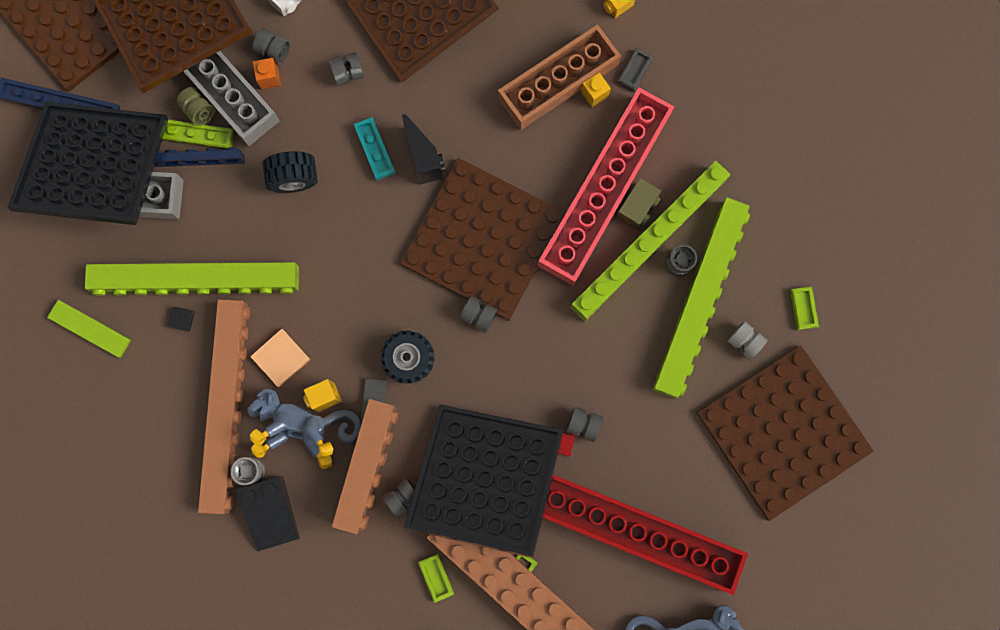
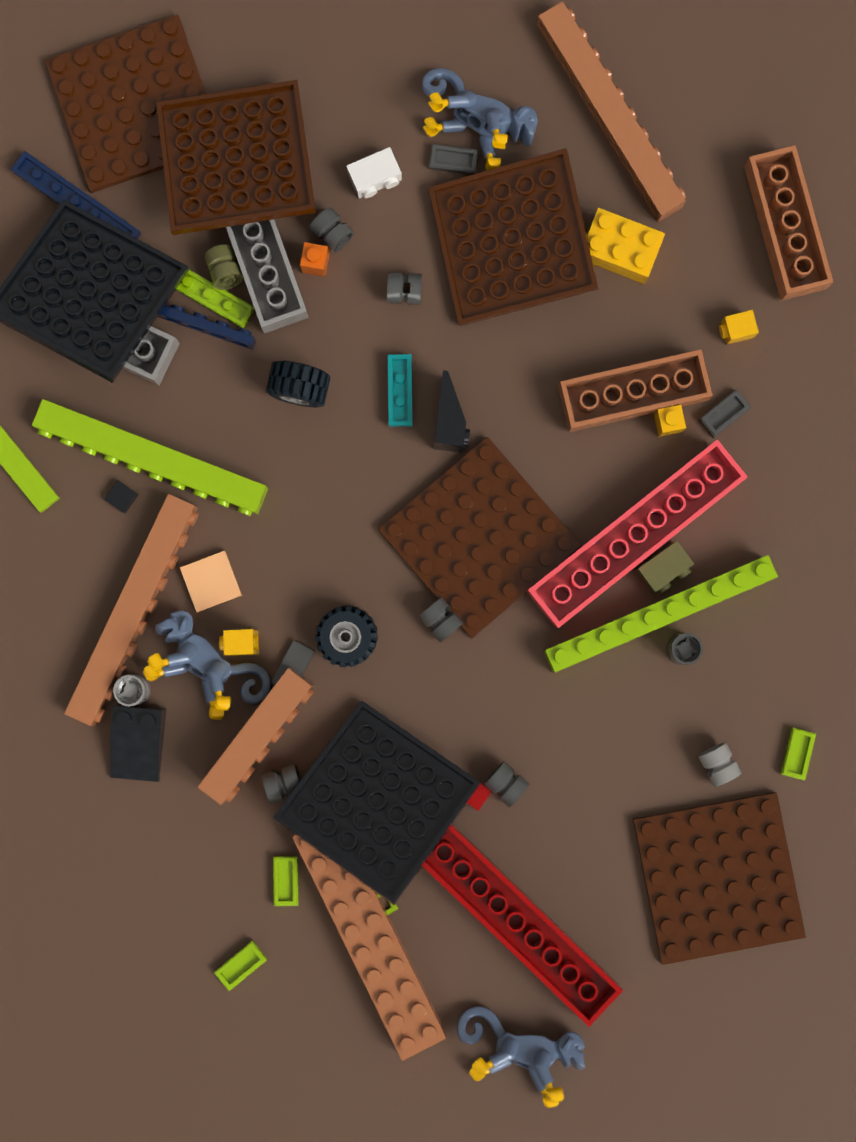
camera: 25 degrees right, 5 degrees up
(700, 299) = (690, 697): lime brick -> none

